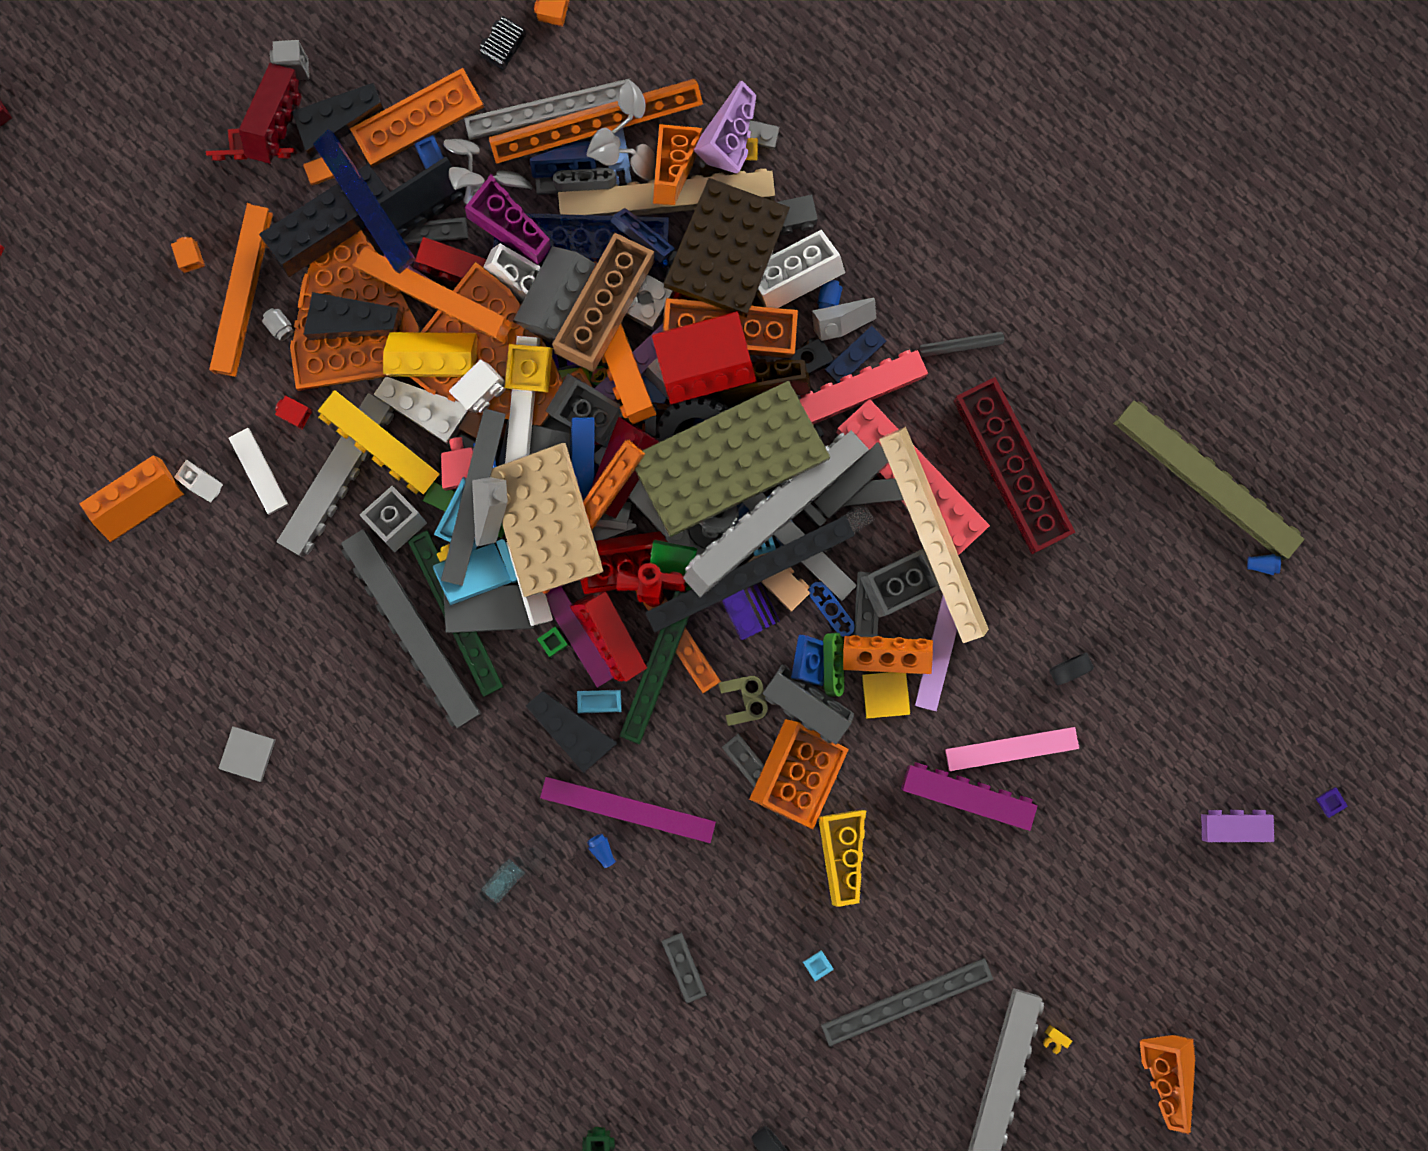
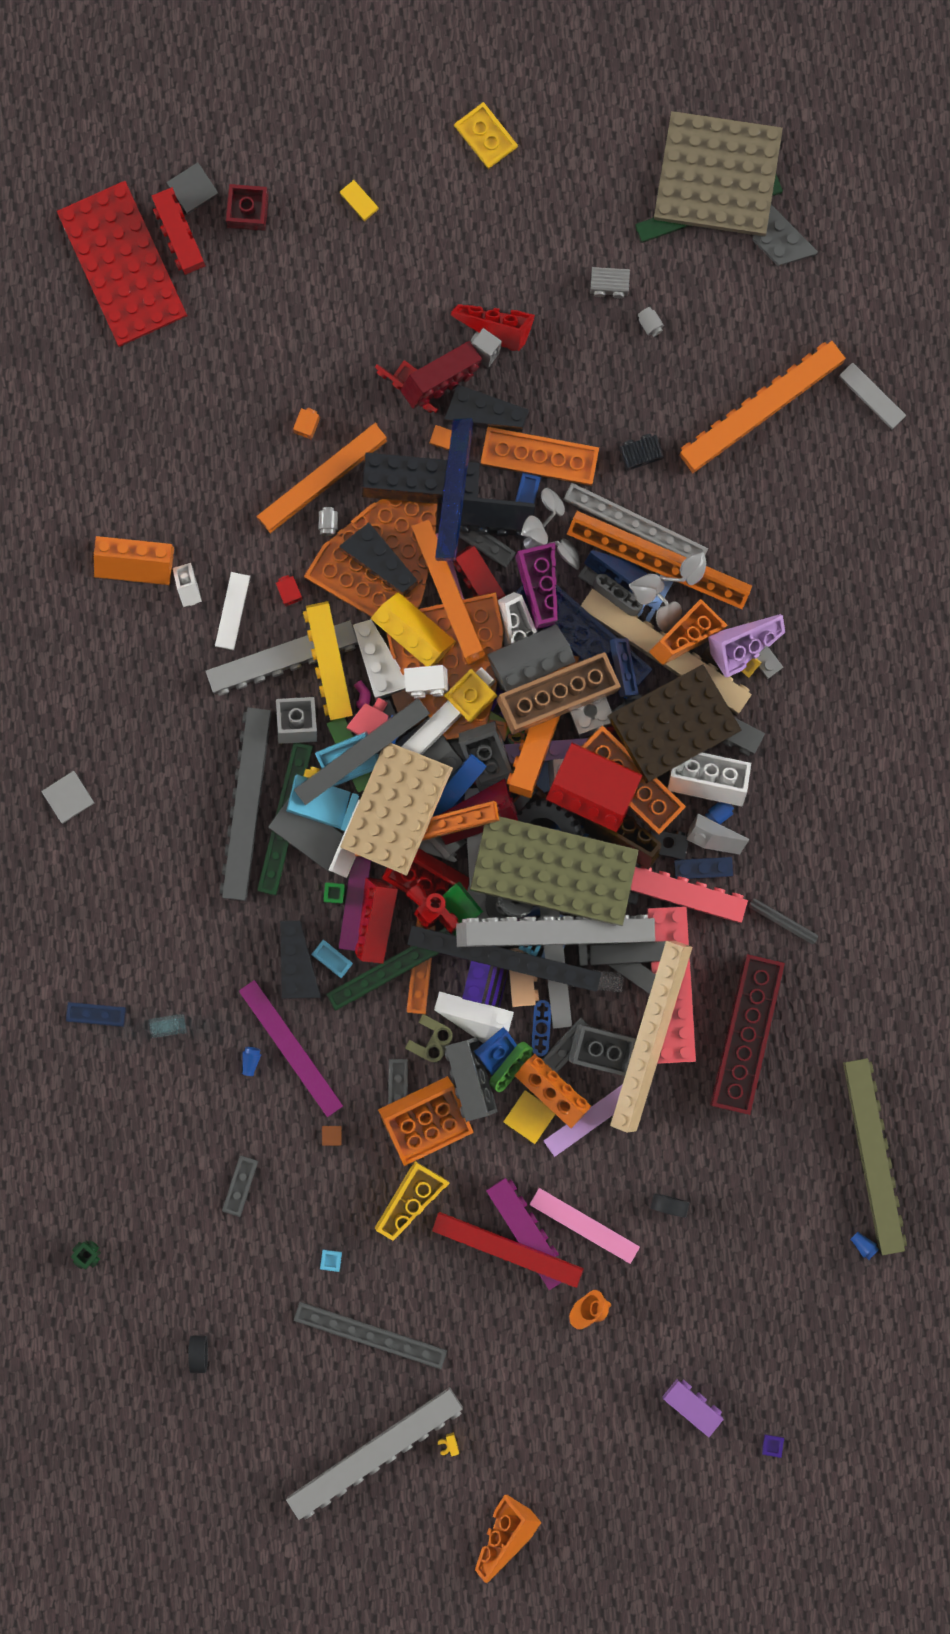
camera: 40 degrees right, 0 degrees up
(74, 25) = (359, 200): none -> yellow tile
(301, 25) = (509, 328): none -> red wedge
(430, 924) = (95, 1014): none -> dark blue tile
(433, 446) = (365, 694): none -> dark pink arm
(489, 508) = (366, 768): light grey slope -> none
(727, 855) = (331, 1135): none -> dark orange tile
(764, 649) = (473, 1017): none -> white wedge
(965, 825) = (508, 1249): none -> red tile
(1078, 818) = (589, 1309): none -> orange piece

